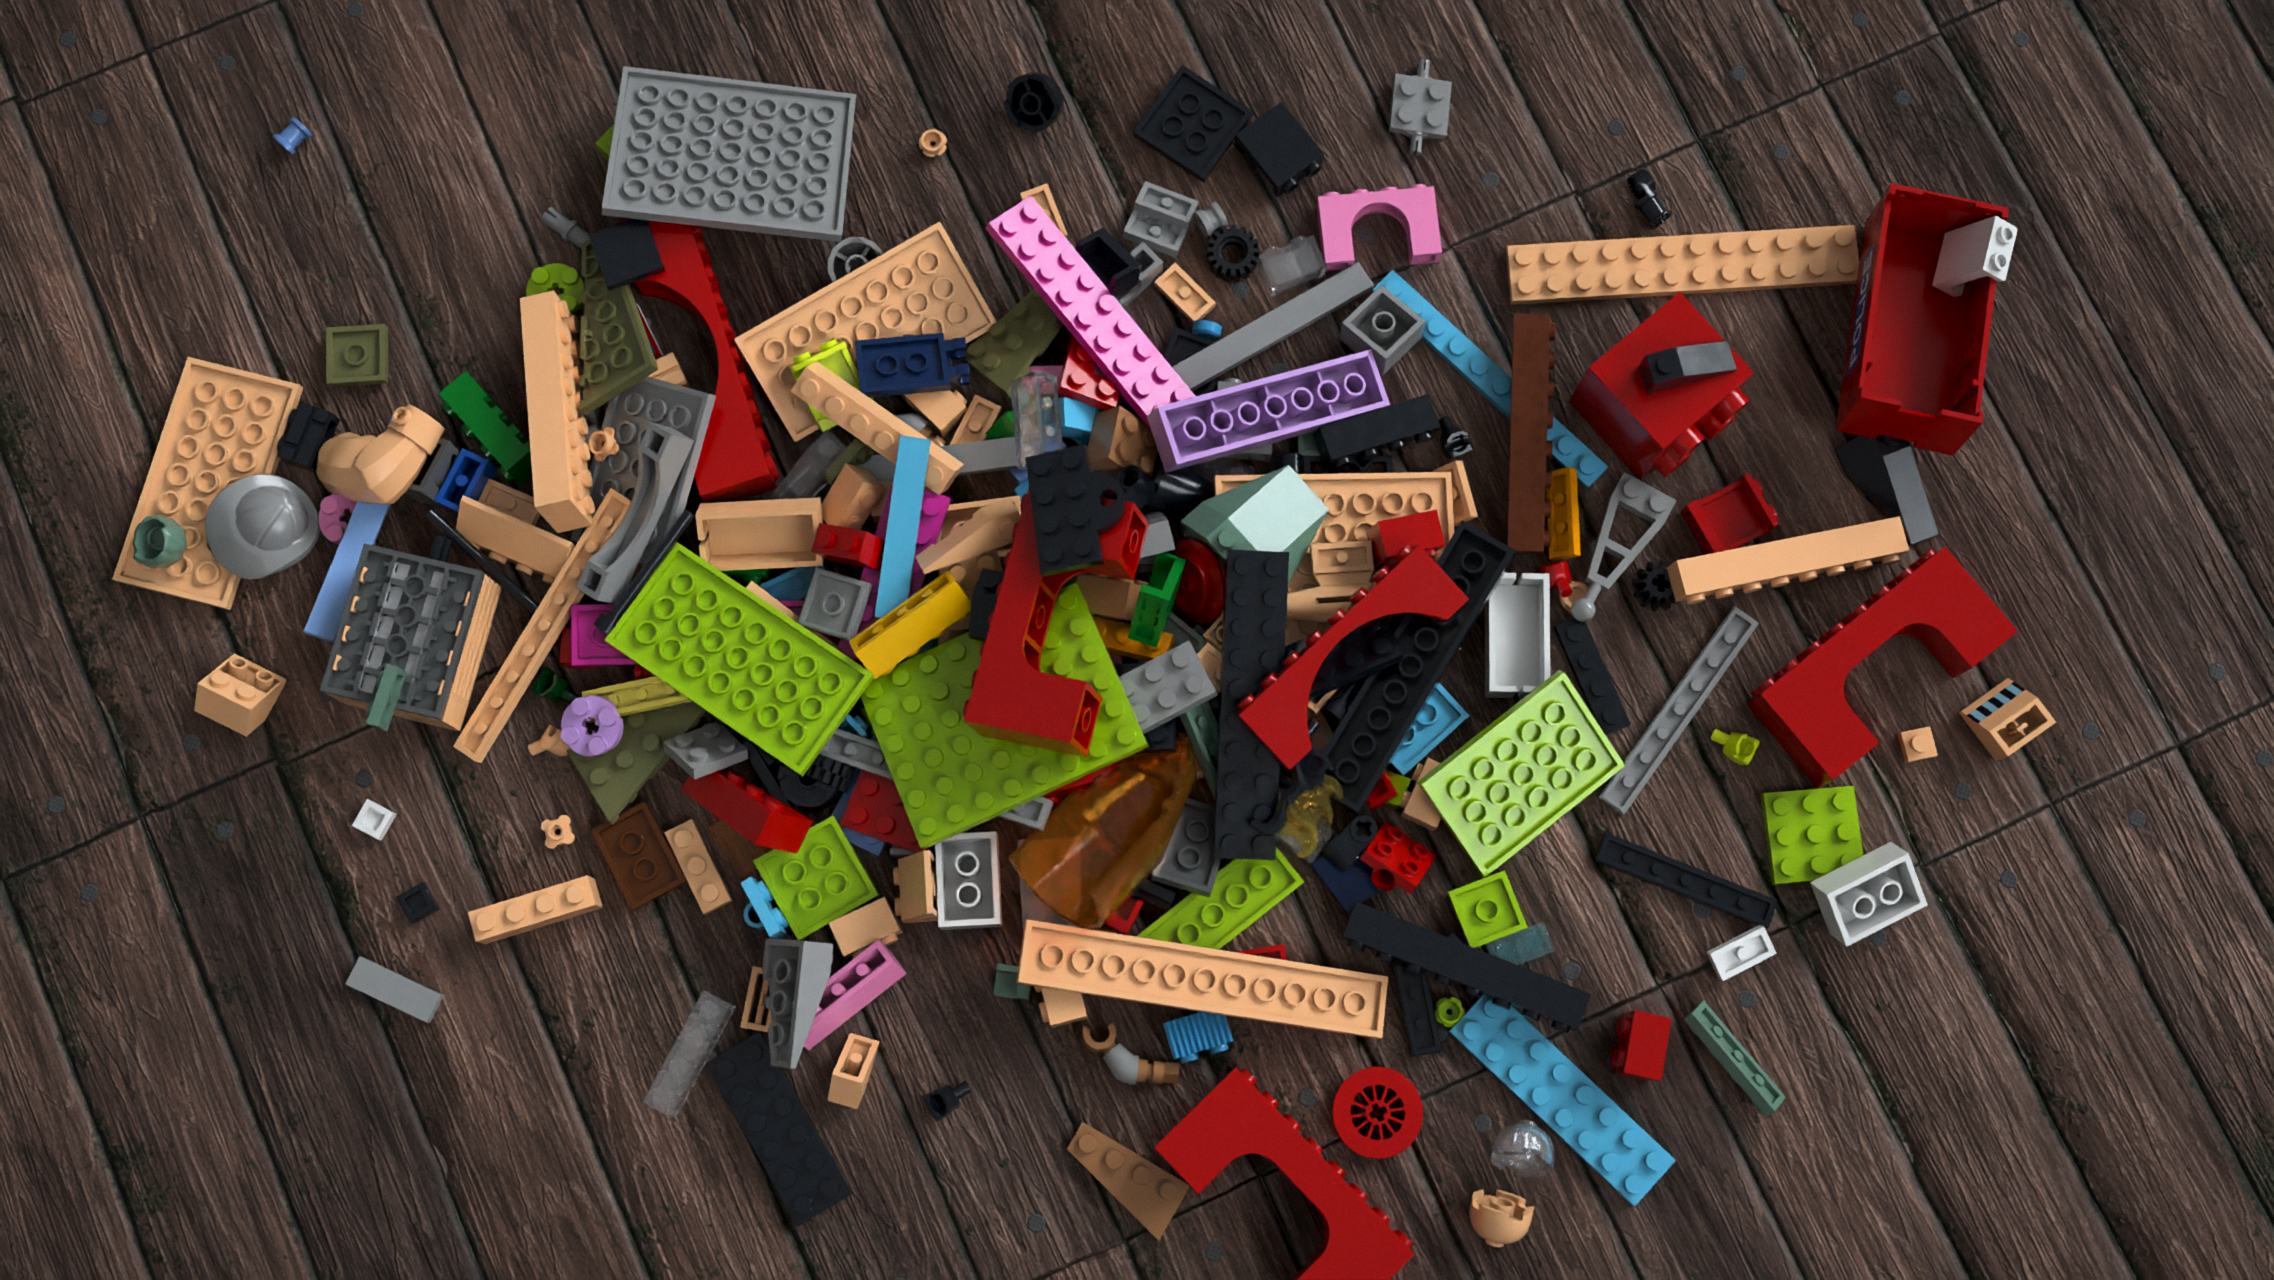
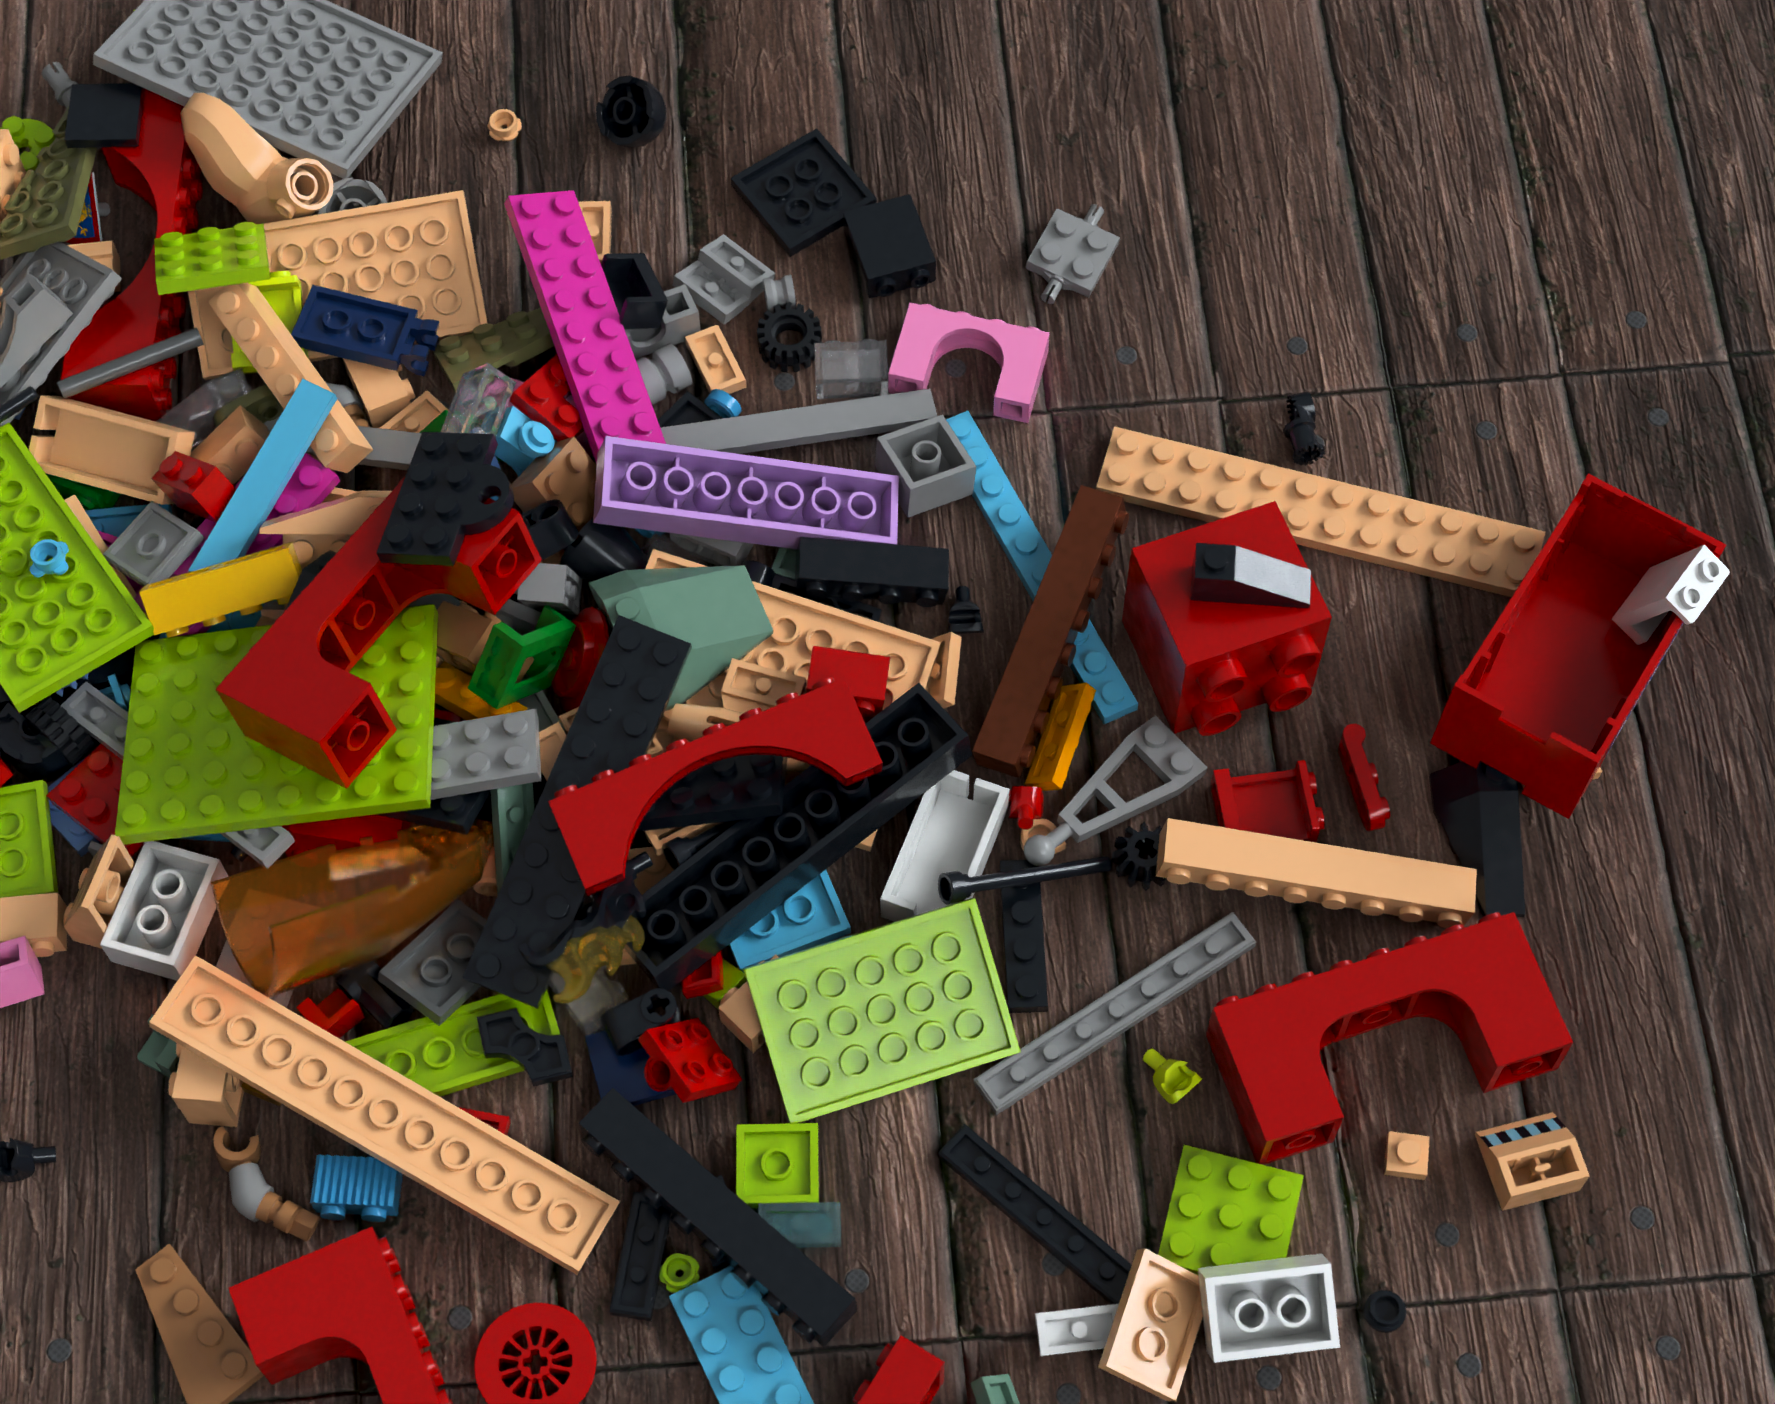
camera: 20 degrees right, 15 degrees down
(749, 460) = (130, 363): none -> dark grey piece
(765, 261) = (249, 168): none -> light nougat piece
(771, 639) = (45, 550): none -> medium azure plate
(778, 354) = (211, 258): none -> lime plate
(1090, 417) = (535, 439): none -> medium azure plate
(1153, 316) = (664, 373): none -> light grey wheel
(1290, 892) = (509, 1038): none -> black tile
(1544, 664) = (957, 886): none -> black piece
(1791, 471) = (1362, 779): none -> red plate
(1793, 932) = (1154, 1326): none -> light nougat plate
(1941, 863) = (1384, 1311): none -> black plate

